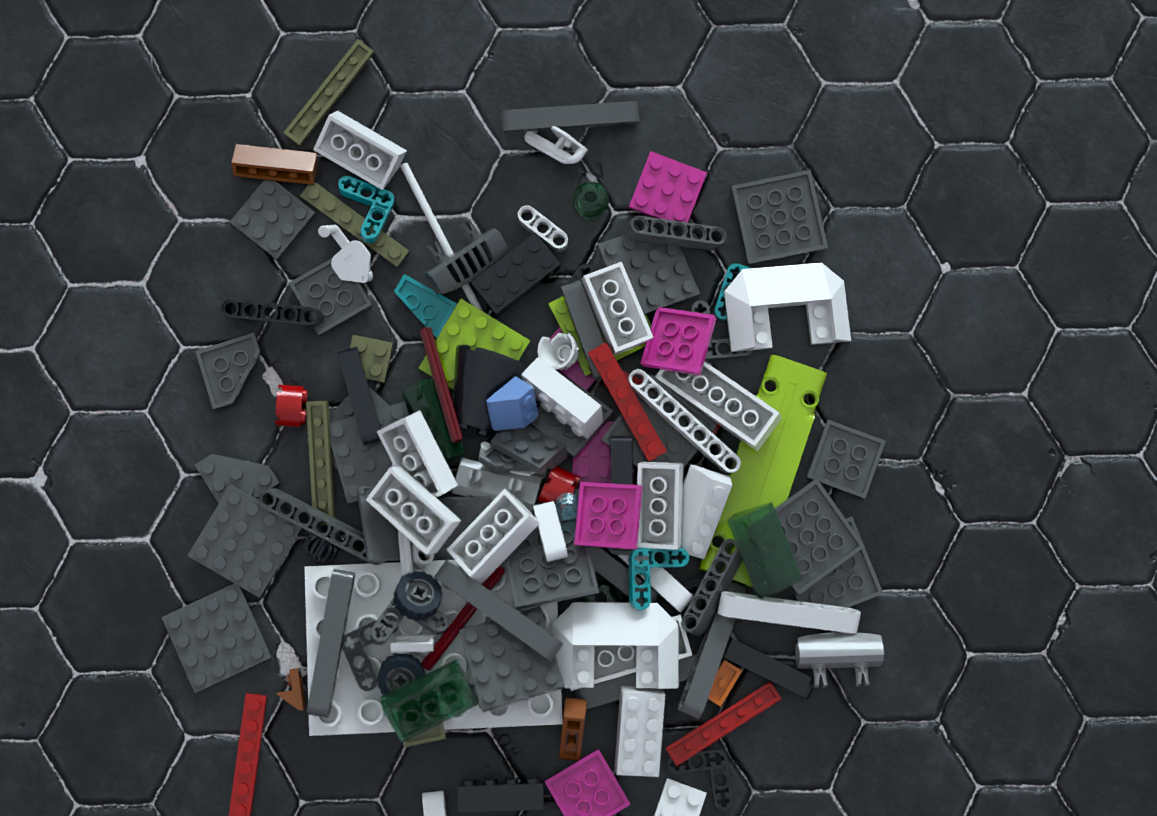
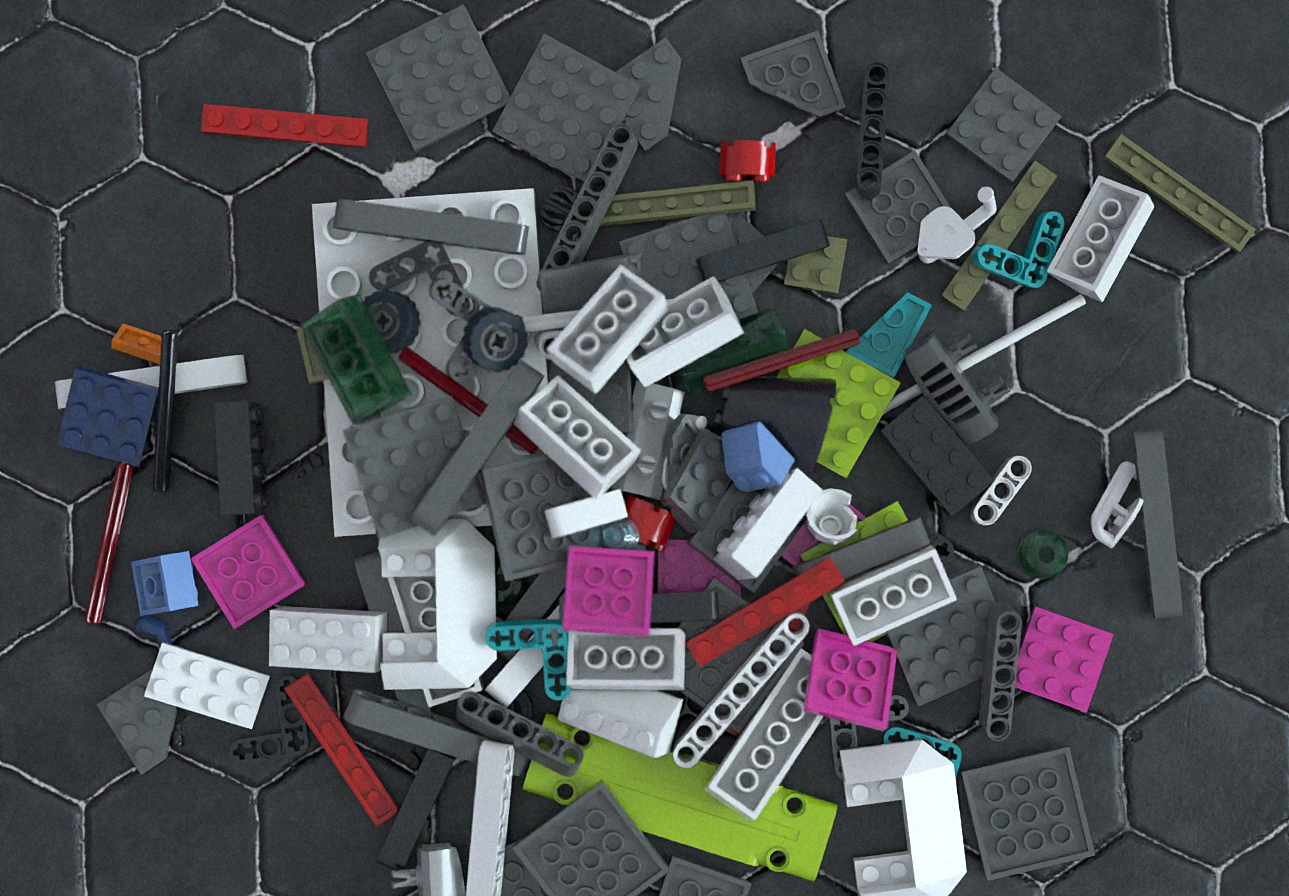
camera: 85 degrees right, 5 degrees up
(274, 164) = (1076, 124): brick -> none
(296, 695) = (365, 185): dark orange slope -> none
(412, 643) = (432, 334): white plate -> none
(572, 729) = (329, 550): dark orange slope -> none
(723, 683) = (396, 750): orange plate -> none
(764, 549) = (570, 802): clear green slope -> none

